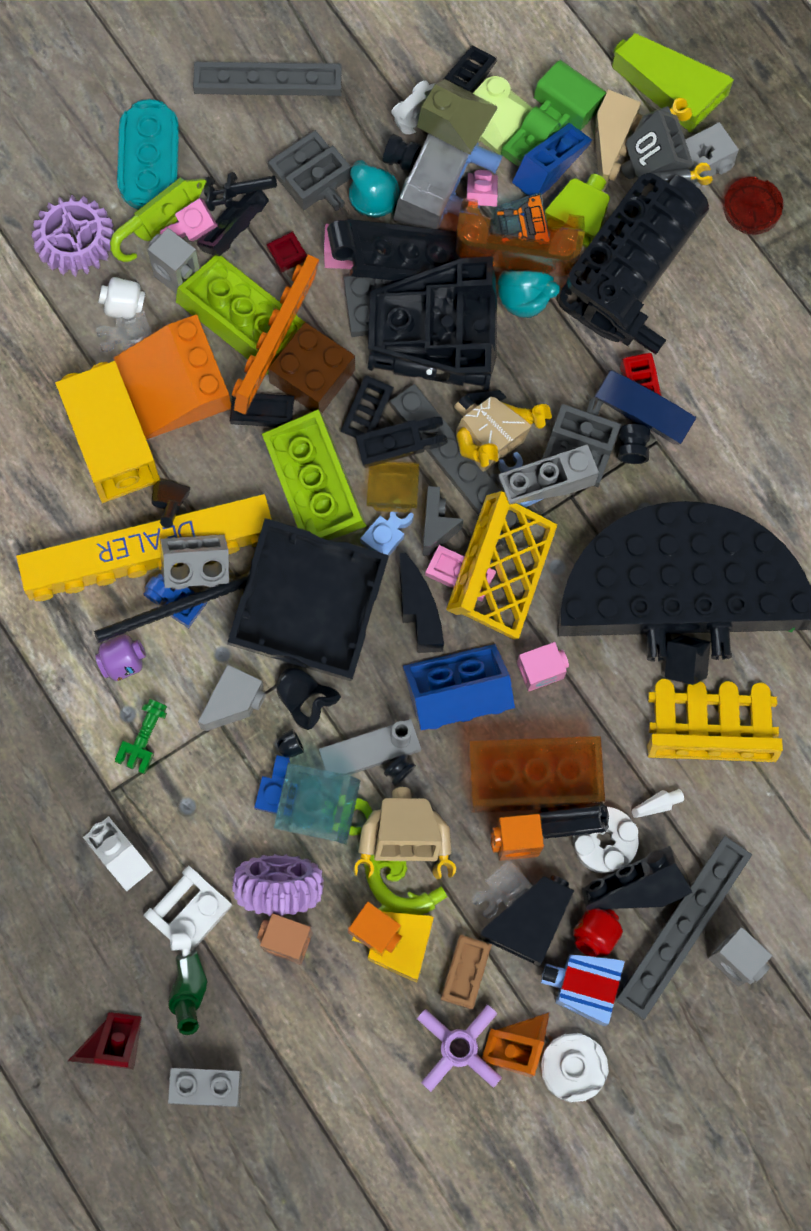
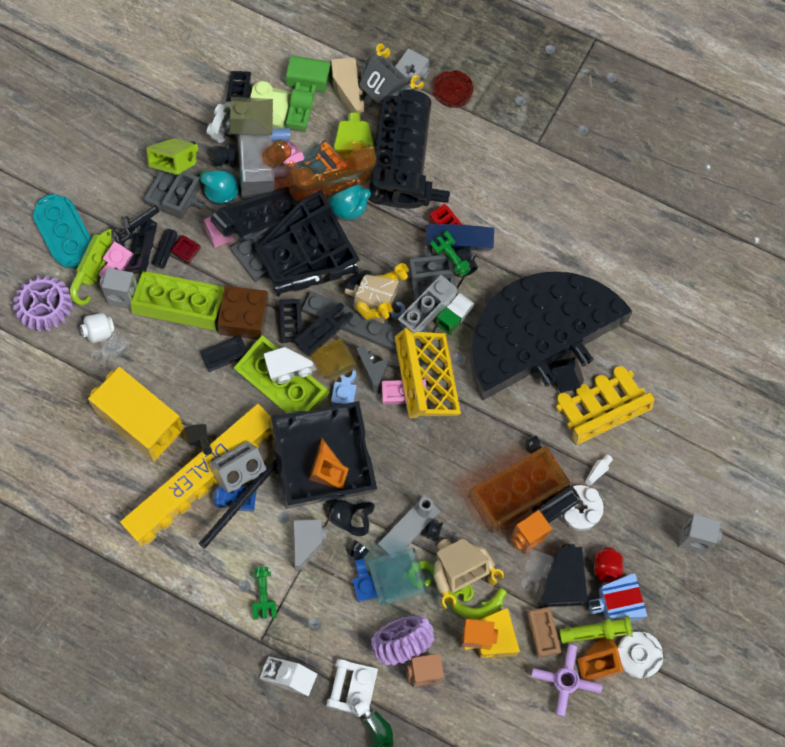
camera: 30 degrees left, 5 degrees down
(120, 657) = (221, 552): medium lavender head -> none
(173, 378) = (159, 358): orange slope -> none
(263, 236) = (165, 248): none -> black axle
(267, 78) = (114, 149): dark grey plate -> none
(270, 342) = (209, 308): orange plate -> none
(308, 620) = (328, 468): none -> orange slope
(324, 461) = (285, 364): none -> white slope
(333, 122) = (172, 155): none -> lime torso
(420, 607) = (391, 424): black slope -> none
(459, 687) = (442, 461): blue slope -> none
(461, 181) = (276, 153): none -> clear orange wheel
(542, 666) = (485, 422): bright pink brick -> none
(547, 1012) = (607, 629): none -> lime pin
(550, 160) = (319, 118): blue slope -> none
(583, 505) = (454, 314): none -> leg
(589, 726) = (533, 444): none -> black hinge
(622, 448) = (445, 246): none -> green hinge
(644, 884) = (619, 521): black slope -> none
(669, 75) = (362, 35): lime slope -> none
(683, 928) = (656, 536): dark grey plate -> none

